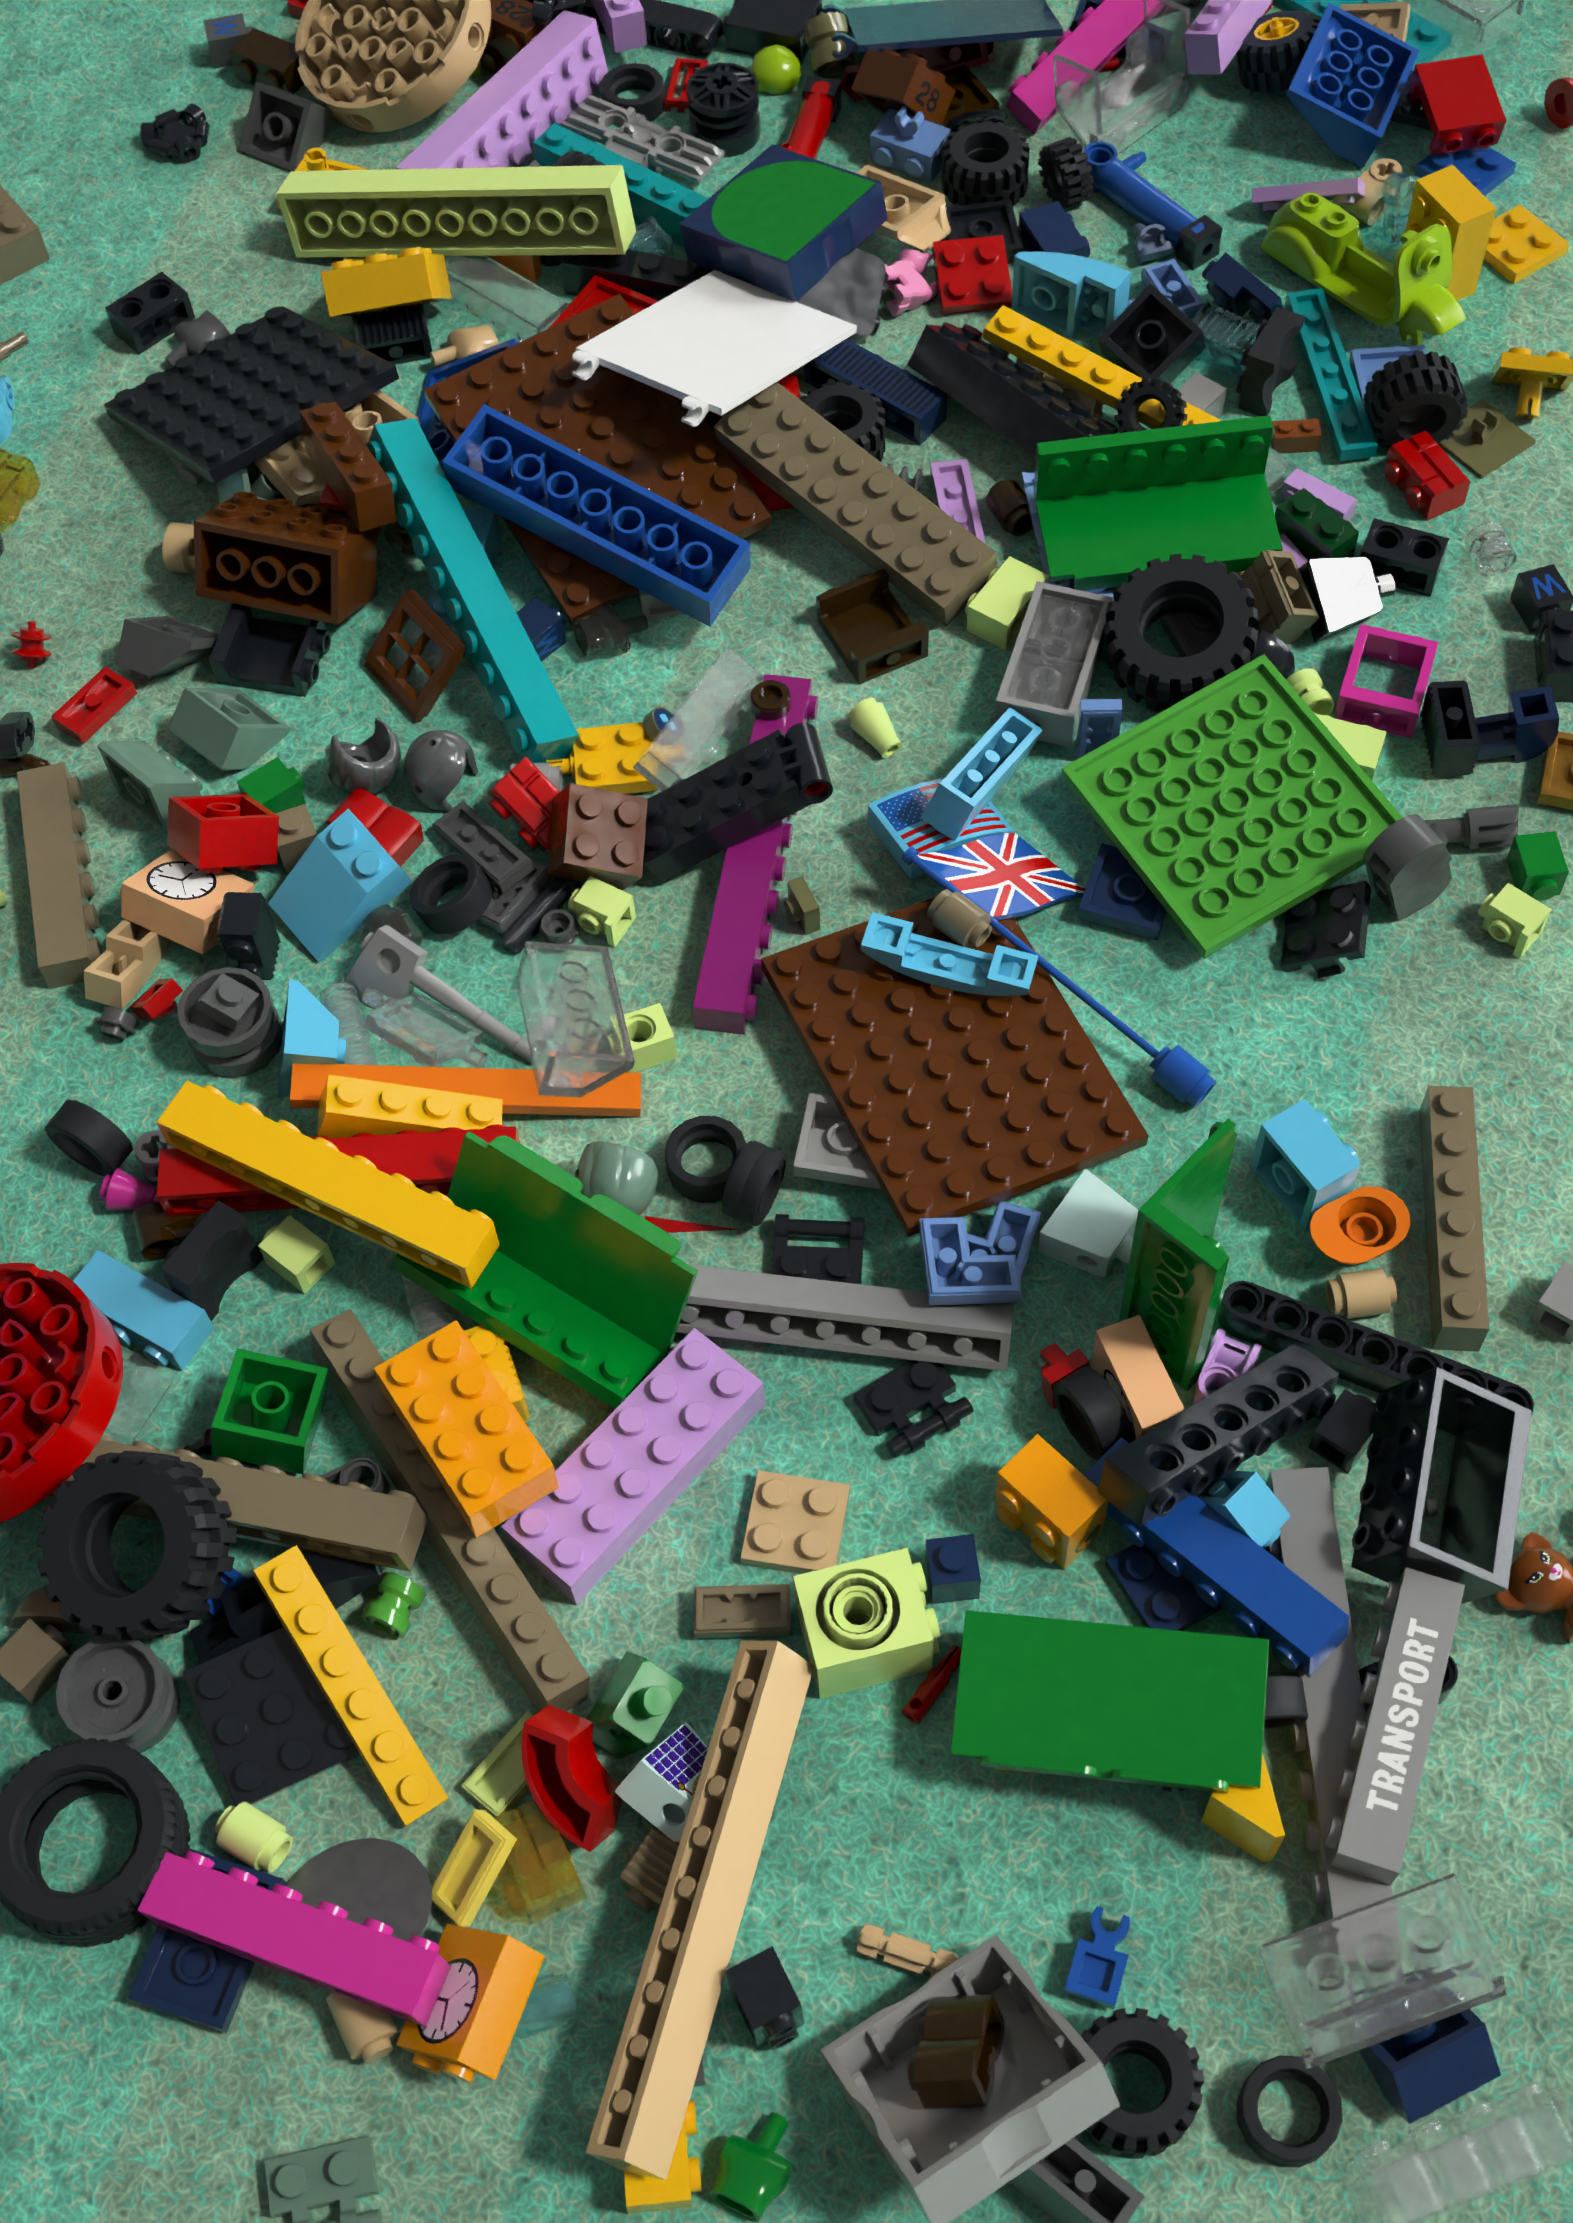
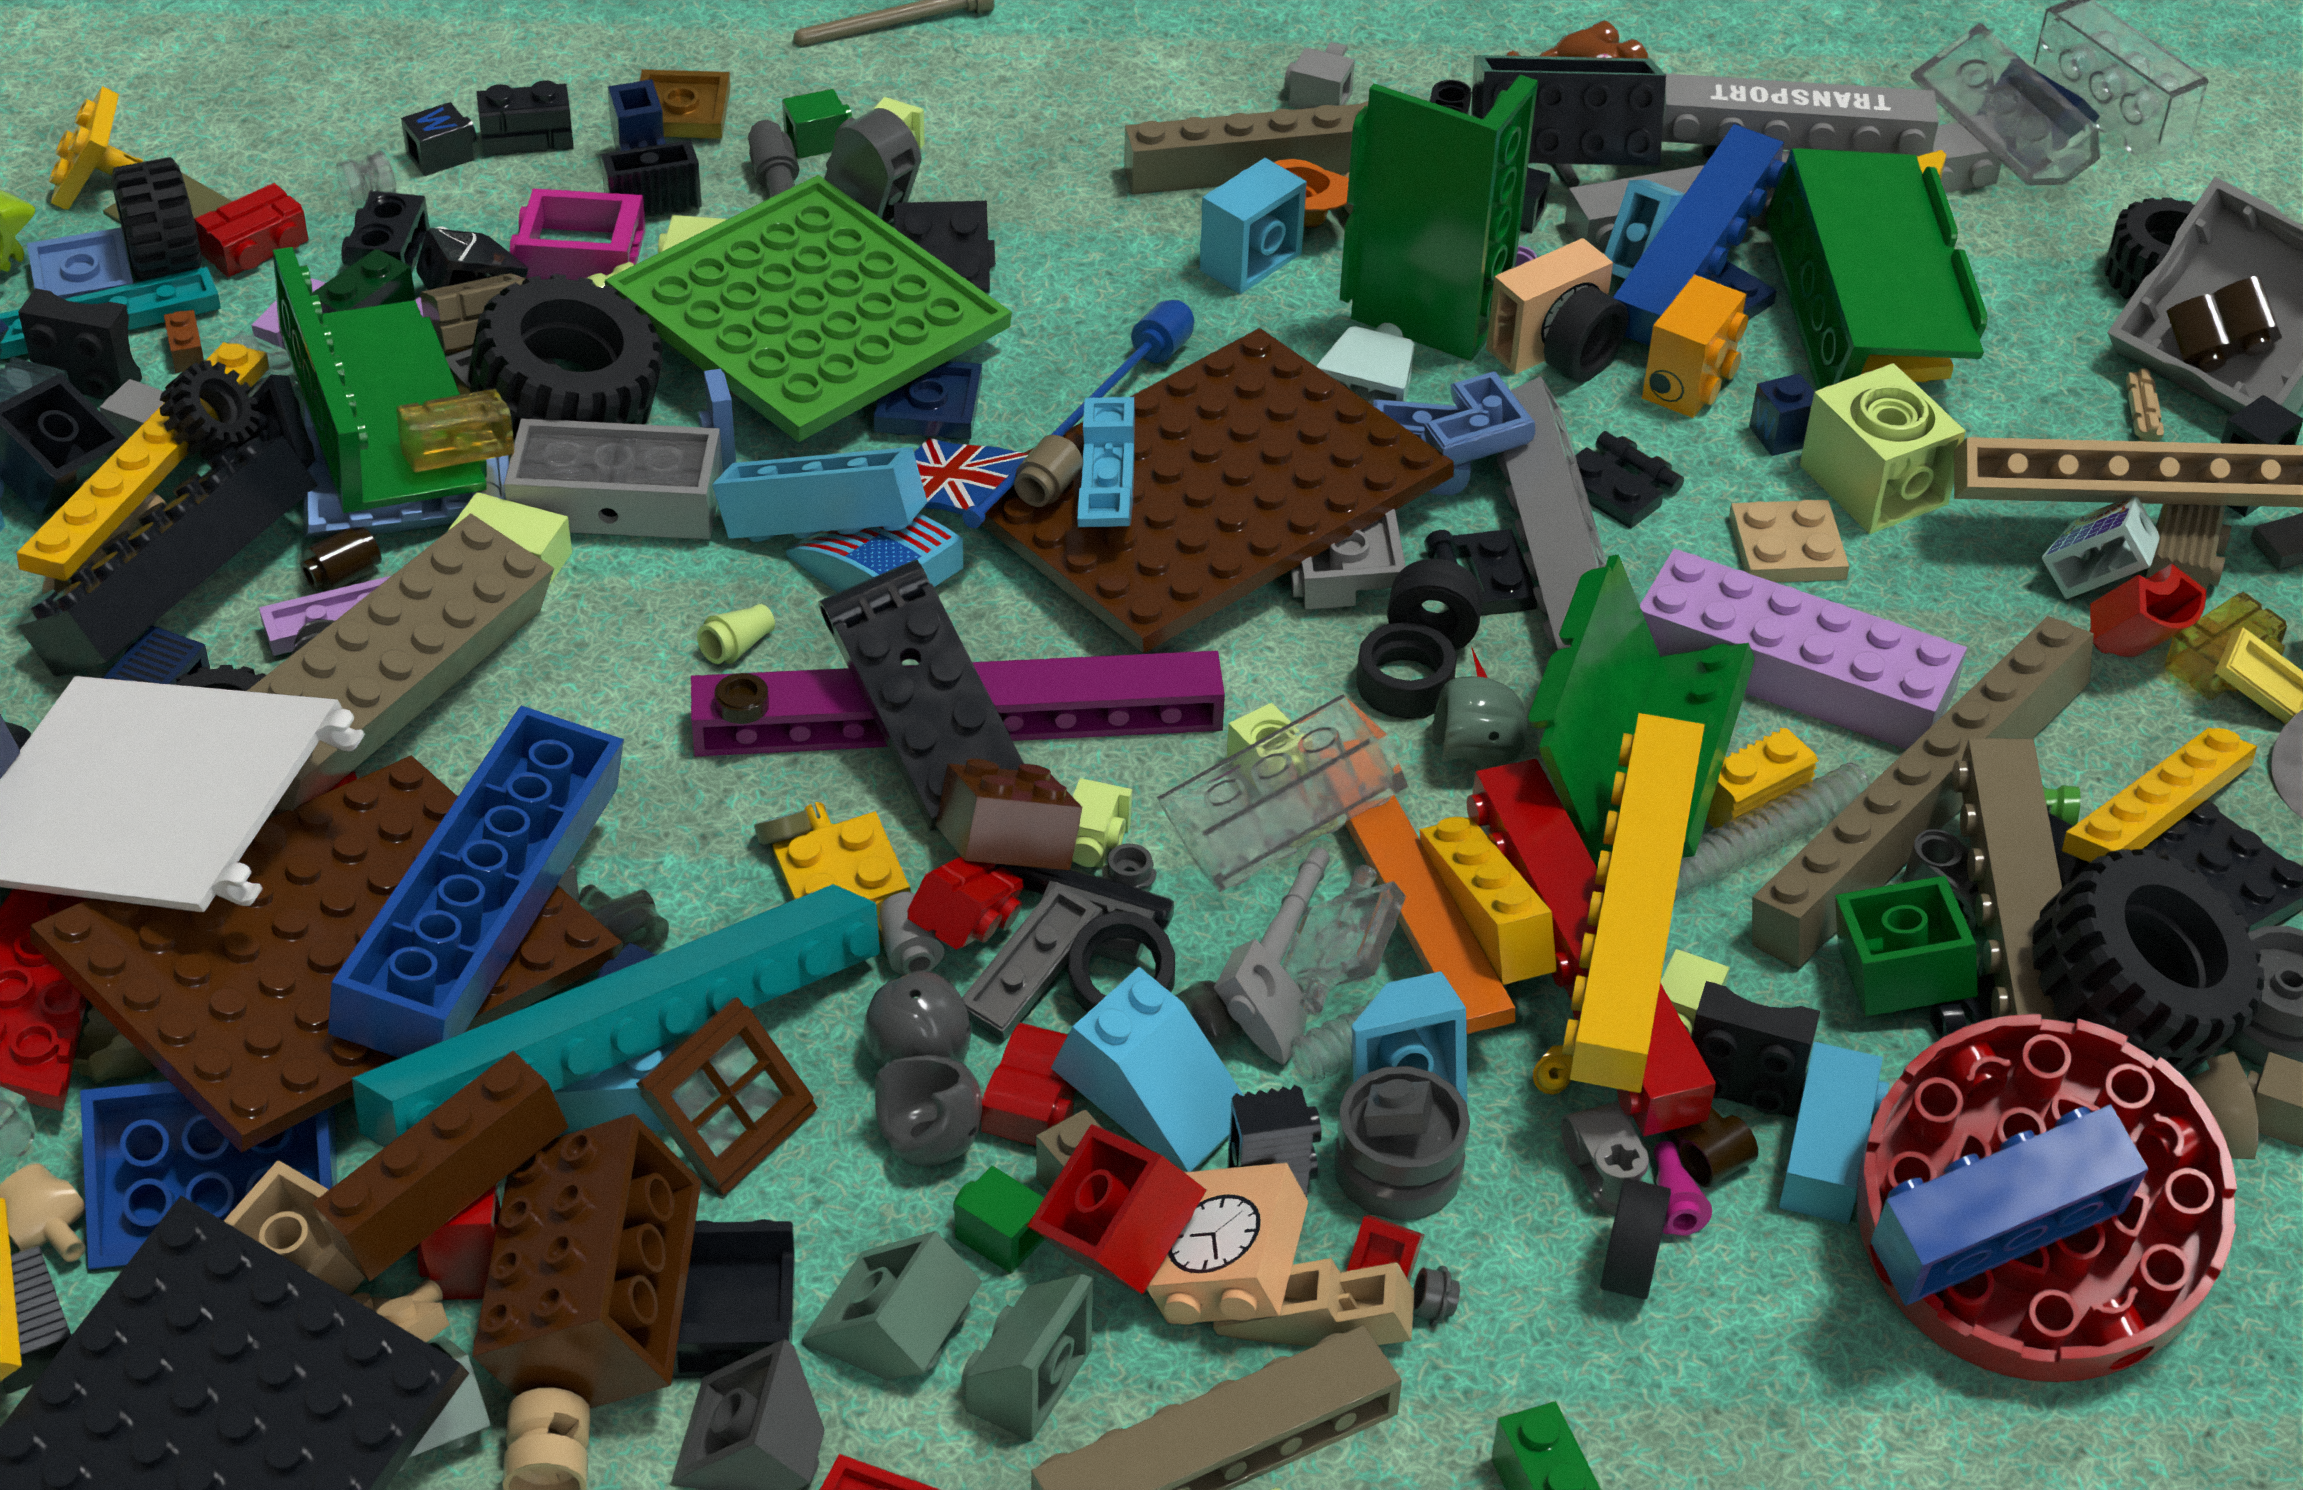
camera: 110 degrees left, 15 degrees down
(466, 1428) = (1863, 724): light orange brick -> none
(501, 1776) = (2144, 695): yellowish green tile -> none
(633, 1703) = (2047, 581): green torso -> none
(700, 721) = (781, 773): clear brick -> none
(742, 1611) = (1901, 557): dark tan plate -> none
(802, 906) = (1032, 639): olive plate -> none
(870, 627) = (574, 661): dark brown panel -> none
(1058, 1367) = (1549, 364): red tile -> none
(1088, 545) = (455, 430): none -> clear yellow brick
(1096, 1966) = (2080, 291): blue plate -> none
(1217, 1434) = (1630, 231): black brick -> none
(1260, 2141) = (2130, 164): black tyre -> none

